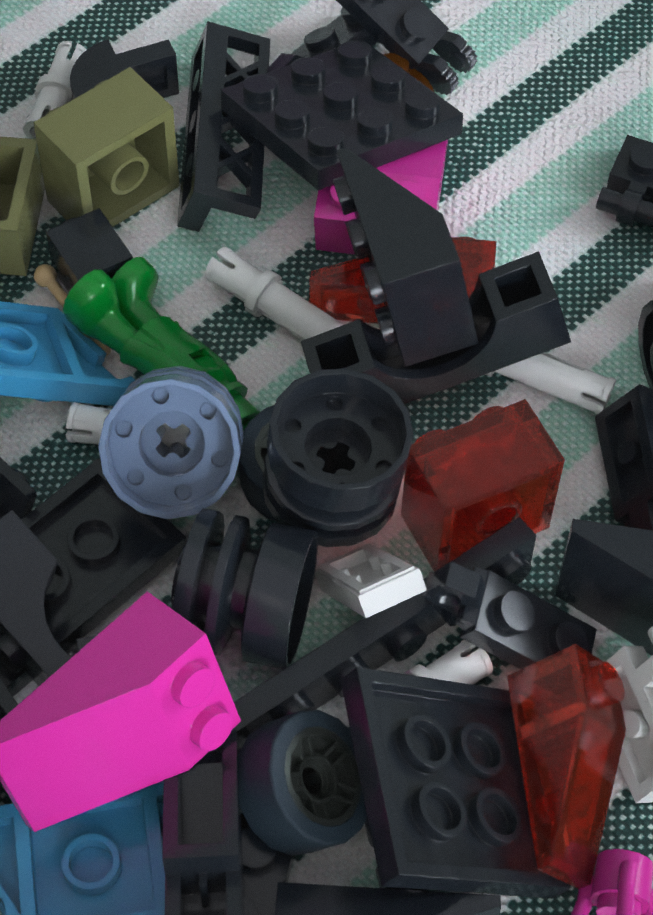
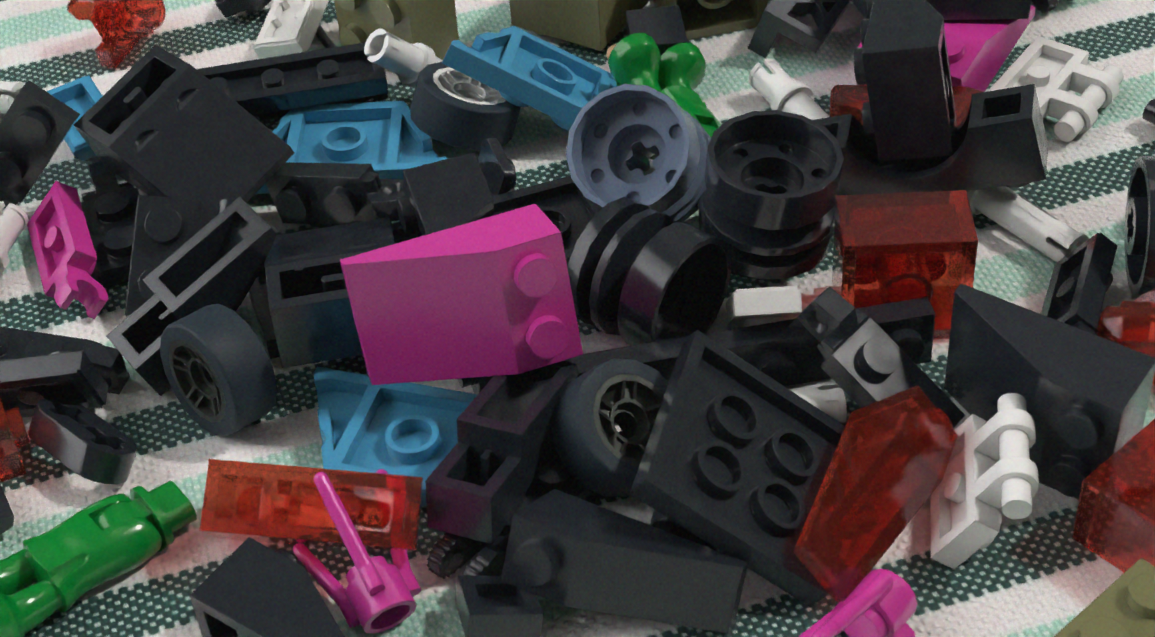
camera: 30 degrees right, 15 degrees down
(487, 191) = (1055, 71): none -> white plate

